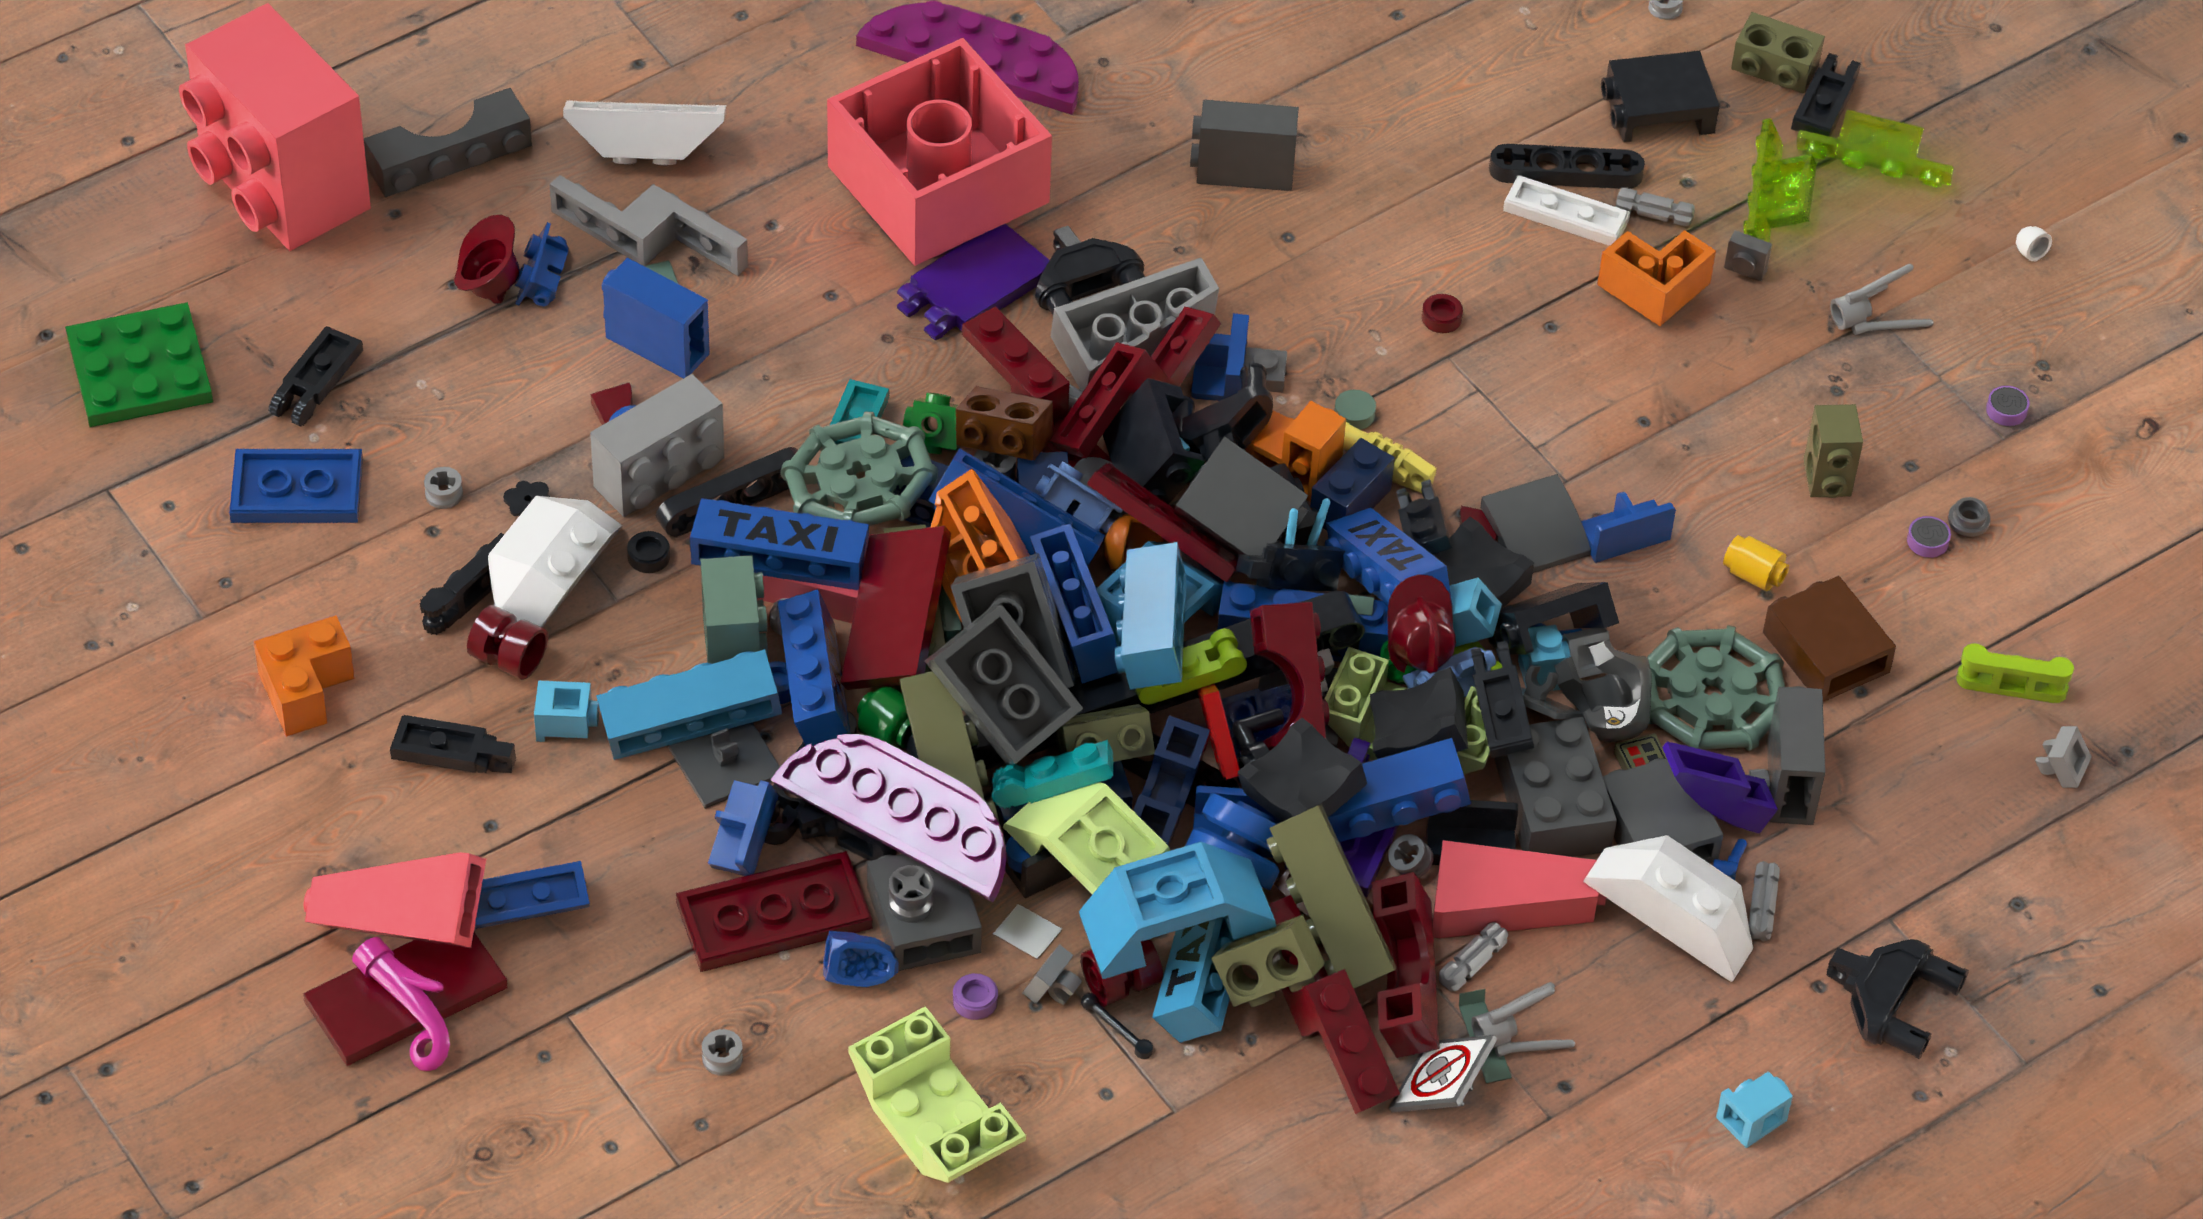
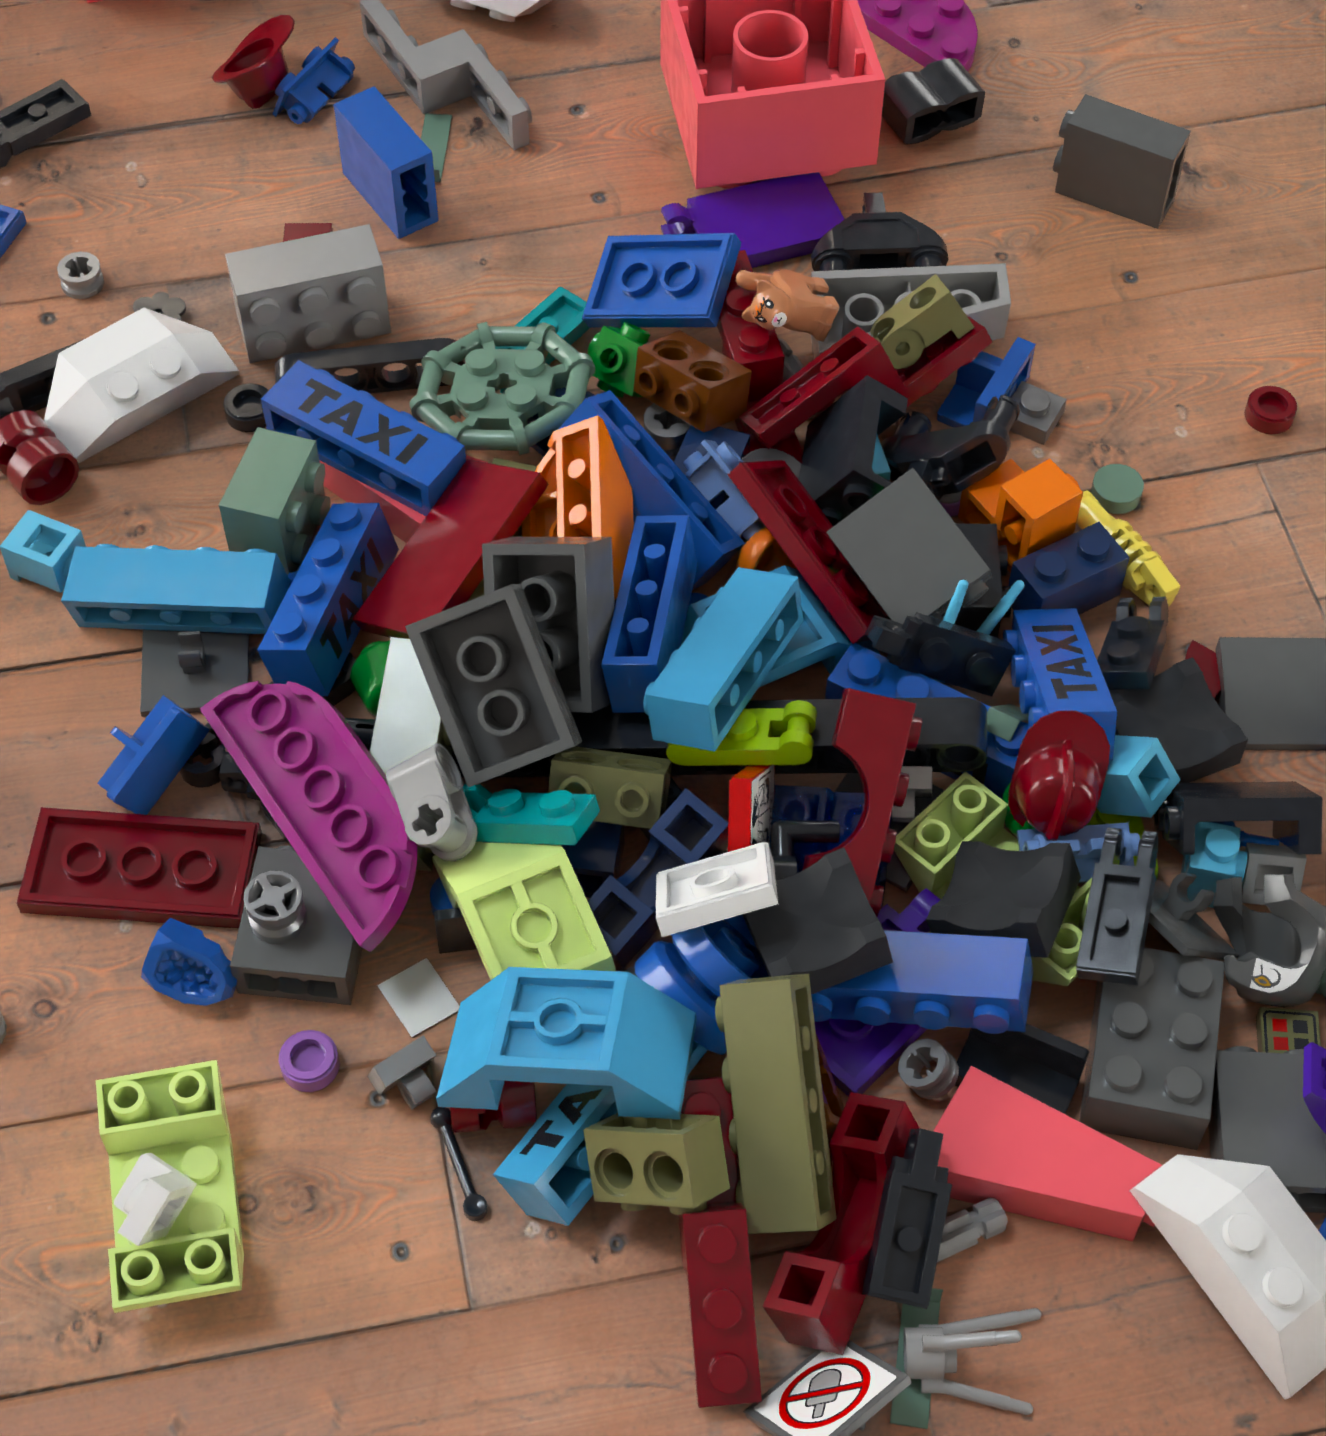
camera: 25 degrees right, 5 degrees up
(931, 1103) = (152, 1199): none -> white bracket
(941, 350) = (662, 280): none -> blue tile
(994, 779) = (434, 803): none -> light grey piece
(1056, 338) = (789, 302): none -> nougat animal
(1075, 131) = (931, 100): none -> black brick
(1162, 322) = (919, 322): none -> olive leg
(1227, 772) = (715, 889): none -> white tile
(1449, 949) = (909, 1224): none -> black hinge

